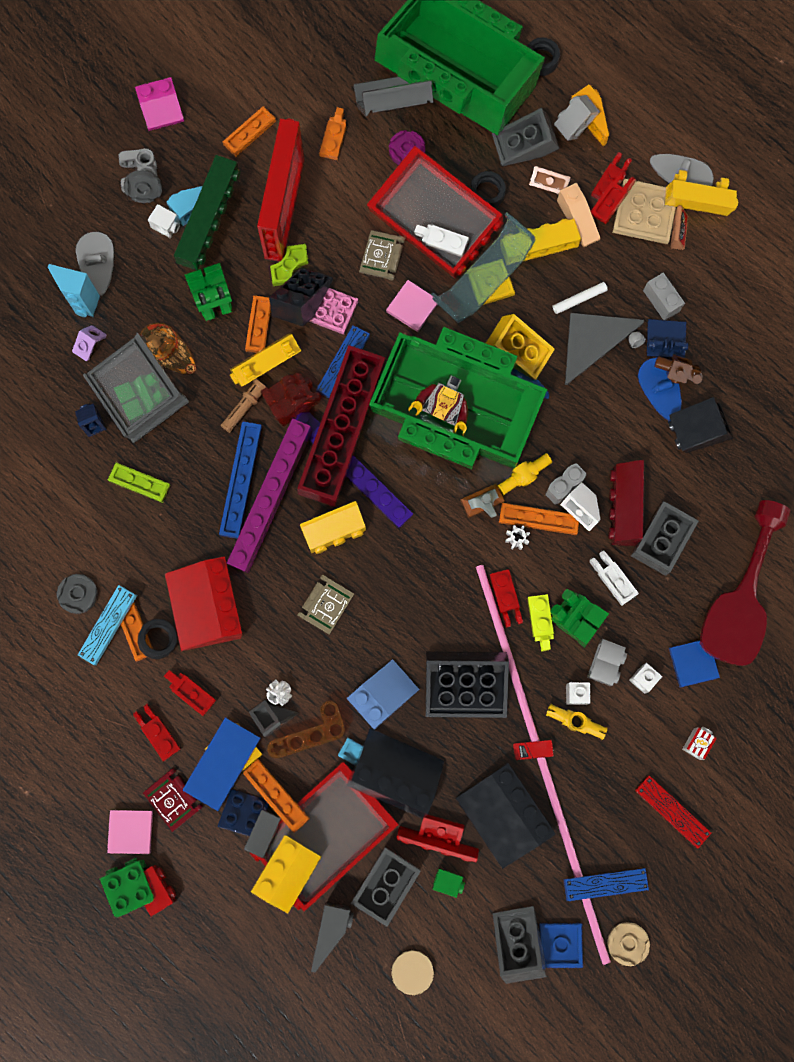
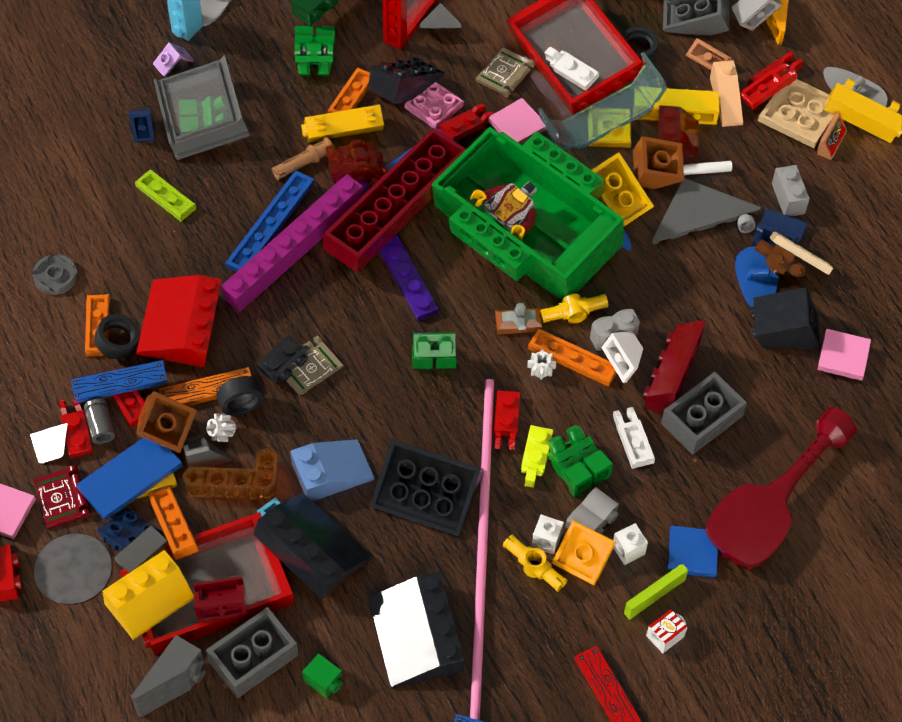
camera: 20 degrees right, 20 degrees down
(107, 625) = (71, 309): medium azure tile -> none
(142, 756) = (49, 443): none -> white sticker
(169, 348) = (251, 89): clear orange shield -> none
(175, 722) = (99, 421): none -> dark grey piece
(177, 682) = (119, 381): none -> blue tile
(208, 859) = (72, 568): none -> flat silver sticker
(232, 709) = (165, 421): none -> dark orange slope
(250, 658) = (202, 389): none -> orange tile
(283, 660) = (242, 385): none -> black tyre
(295, 257) = (413, 47): lime tile -> none
(305, 611) = (283, 359): none -> black bracket
(306, 221) = (440, 18): none -> dark grey slope
(333, 528) = (346, 290): yellow slope -> none
(344, 854) = (220, 599): none -> dark red hinge
(368, 323) = (465, 123): none -> red hinge
(426, 559) = (434, 346): none -> green hips
(439, 836) = (336, 625): red bracket -> none
(533, 750) = (474, 576): red sticker -> none
(546, 308) = (658, 162): none -> dark orange slope
(549, 269) = (678, 126): none -> clear red slope
(612, 699) = (584, 552): none -> light orange tile
(679, 712) = (655, 591): none -> lime tile
(693, 357) = (801, 252): none -> tan tile
(755, 440) = (844, 354): none -> bright pink tile

